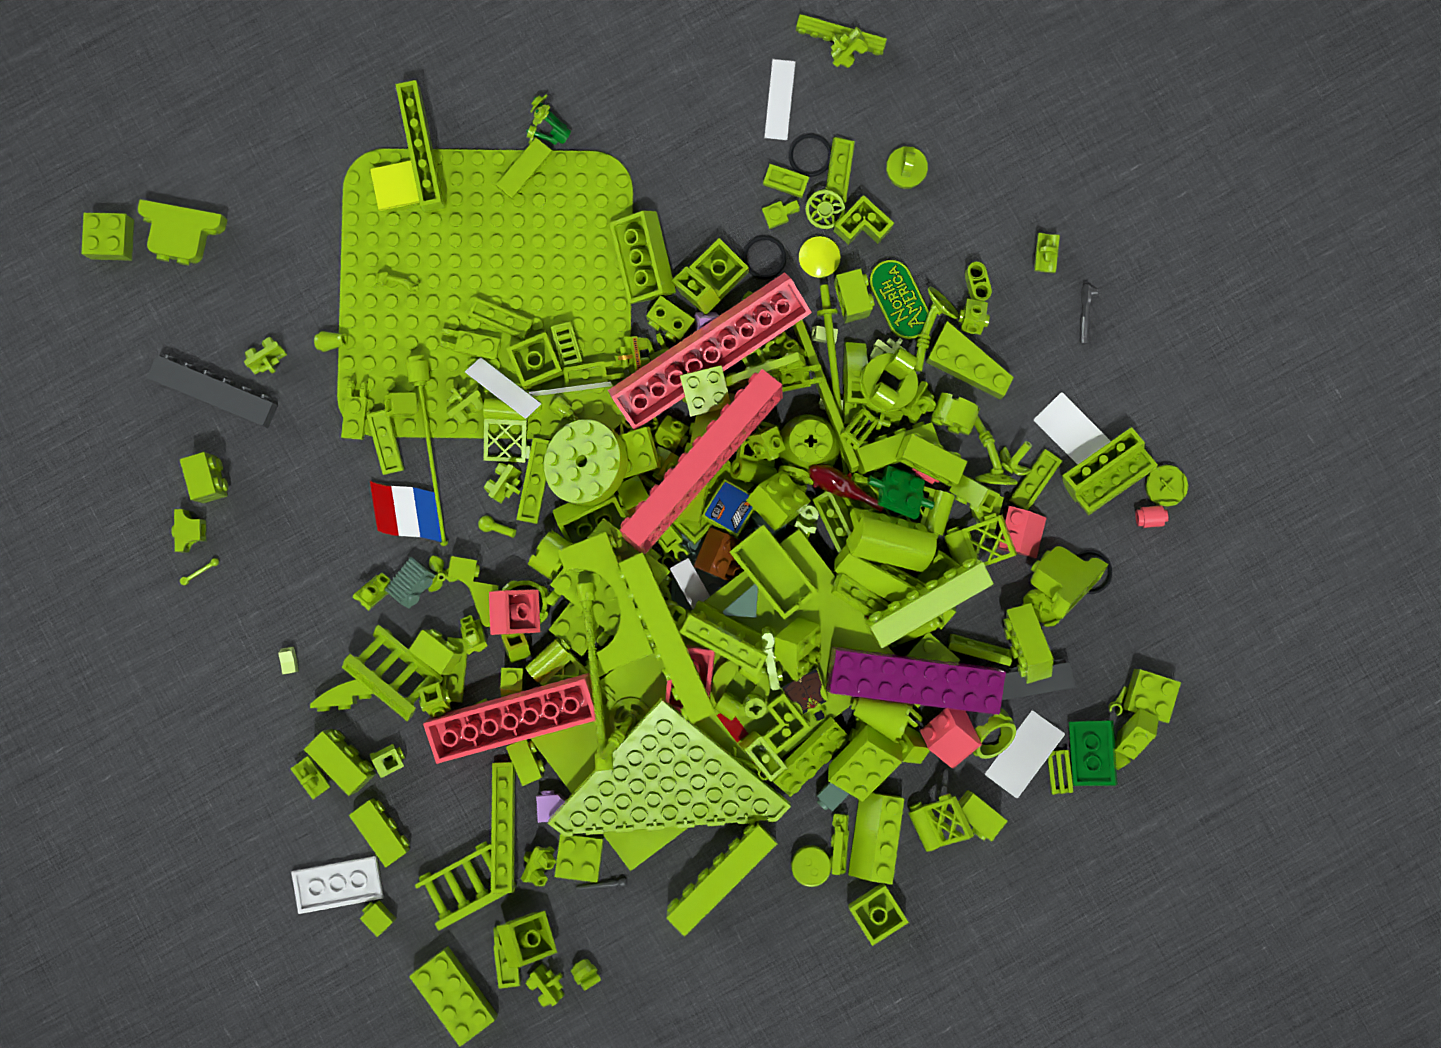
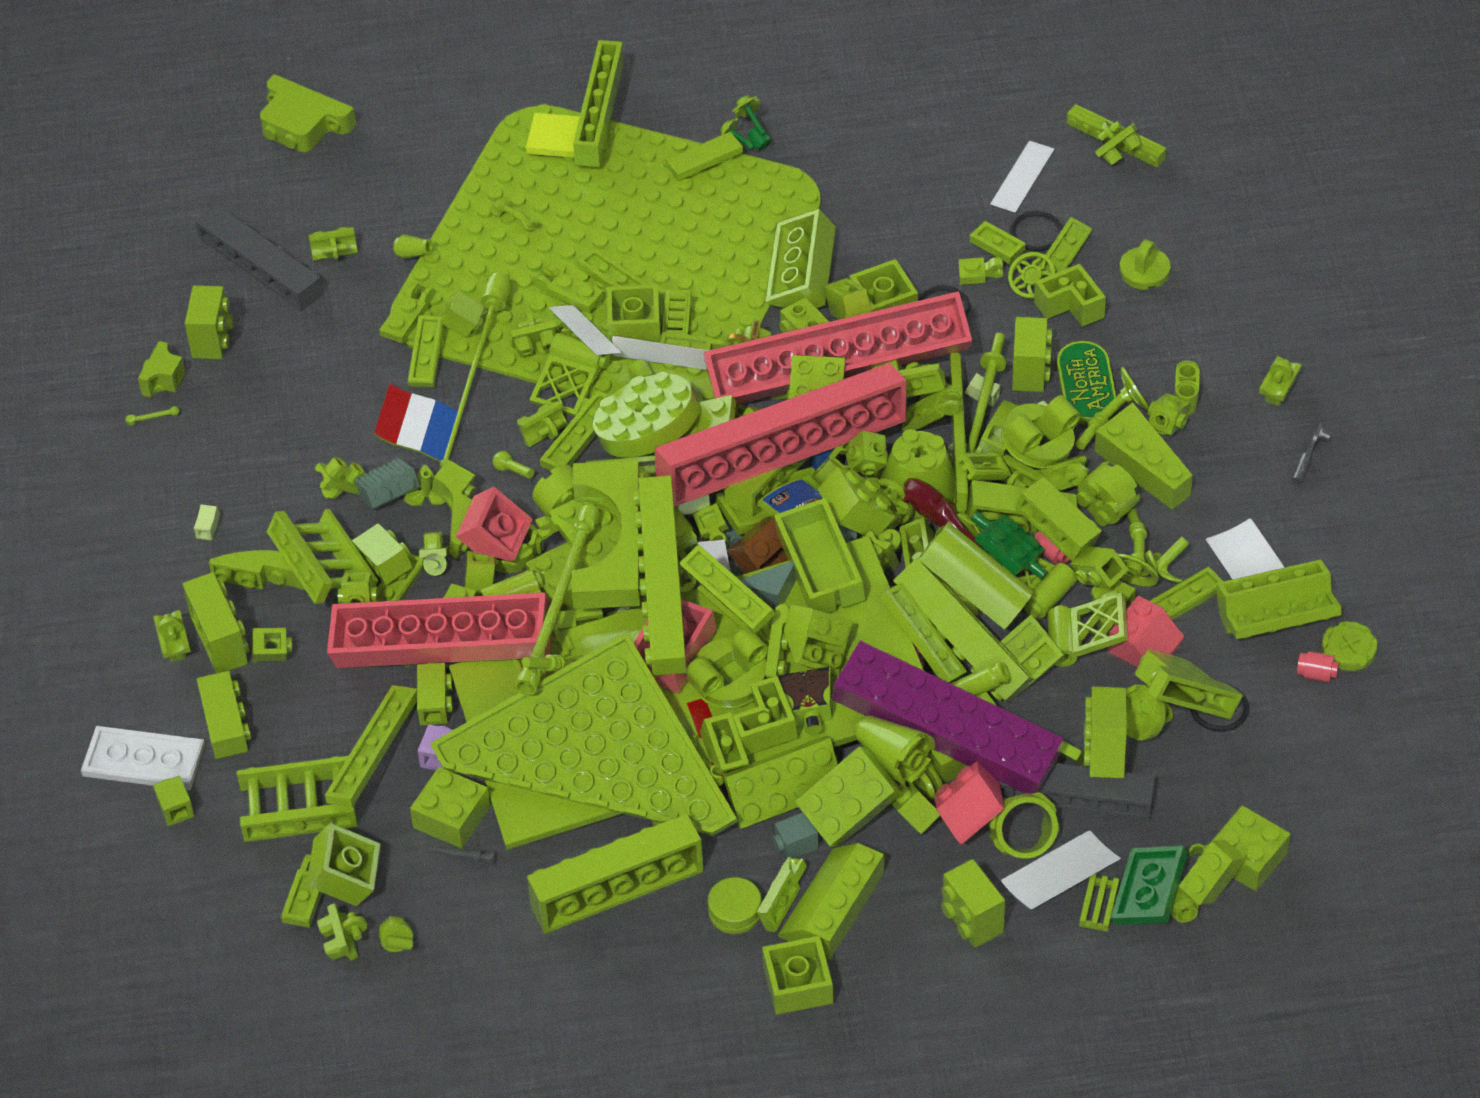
camera: 20 degrees right, 35 degrees down
(107, 236) = (221, 100): lime brick -> none
(453, 996) = (222, 907): lime brick -> none
(537, 862) = (395, 798): lime hips -> none
(753, 701) = (736, 691): lime wheel -> none
(819, 257) = (1001, 318): neon yellow dish -> none
(928, 602) = (1002, 641): lime brick -> none
(930, 827) = (904, 898): lime piece -> none

